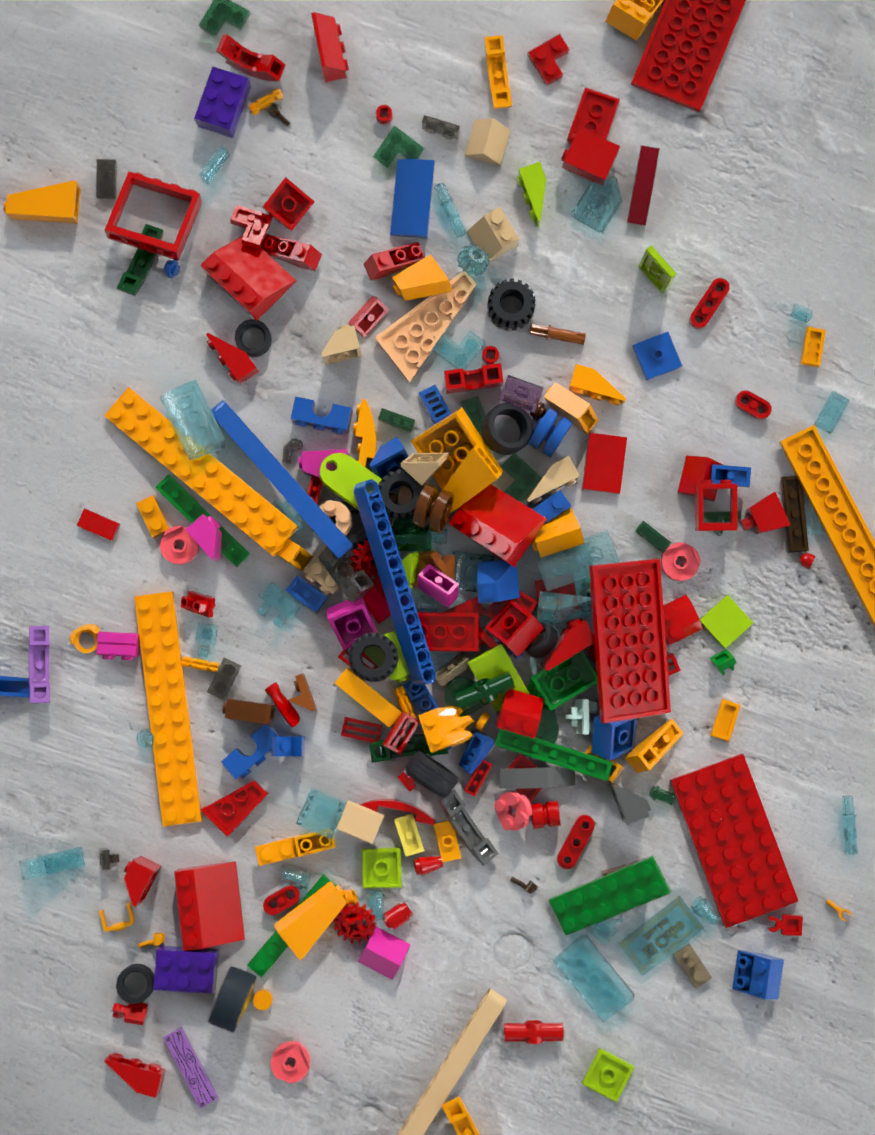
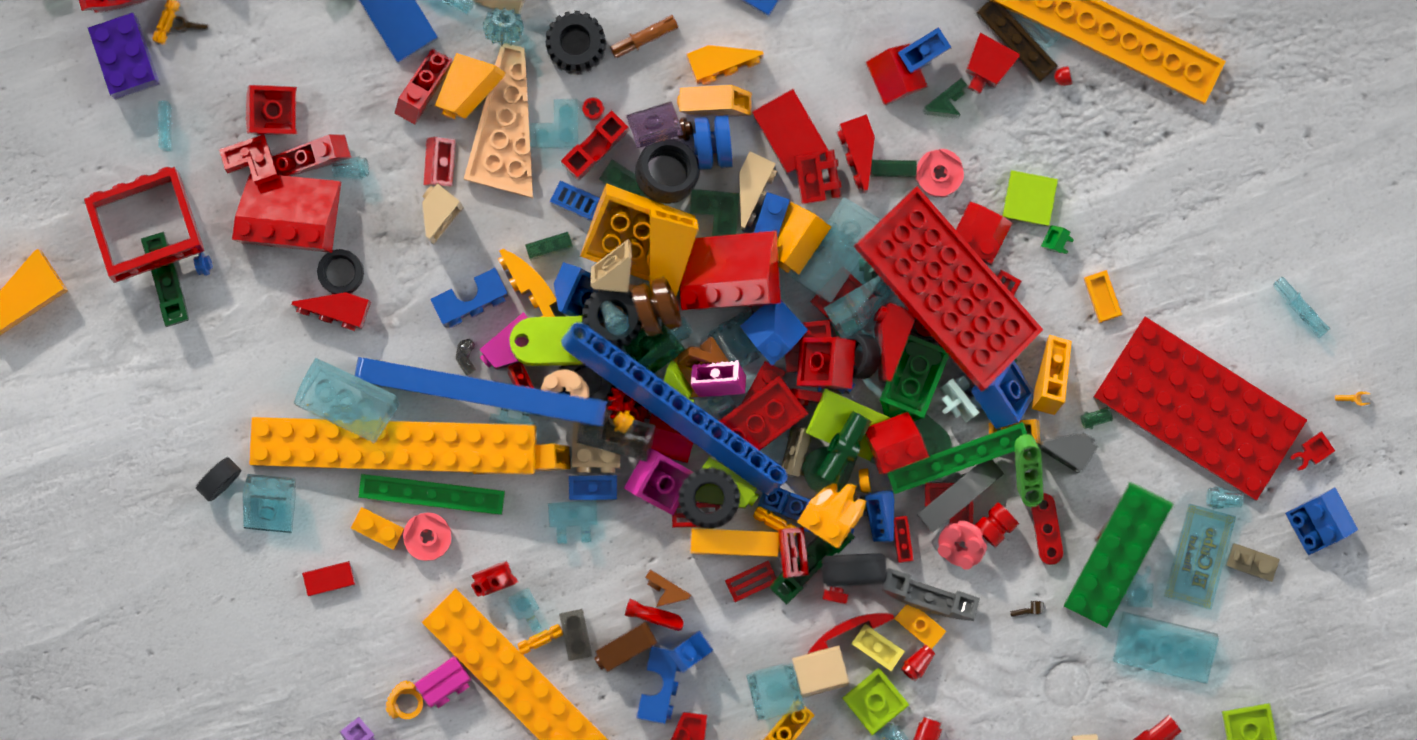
camera: 40 degrees left, 0 degrees up
(76, 409) = (218, 479): none -> black tyre
(97, 448) = (269, 503): none -> clear light blue slope
(106, 178) = (63, 223): clear smoke plate -> none
(207, 535) = (450, 503): dark pink slope -> none
(311, 279) = (352, 168): none -> clear light blue cone
(355, 566) = (623, 421): none -> light orange plate
(399, 497) = (615, 319): none -> clear light blue cone
(595, 502) = (810, 176): none -> red plate
(598, 791) = (1025, 461): none -> bright green beam
(643, 503) = (859, 141): none -> red slope
(724, 484) = (926, 63): red window -> none

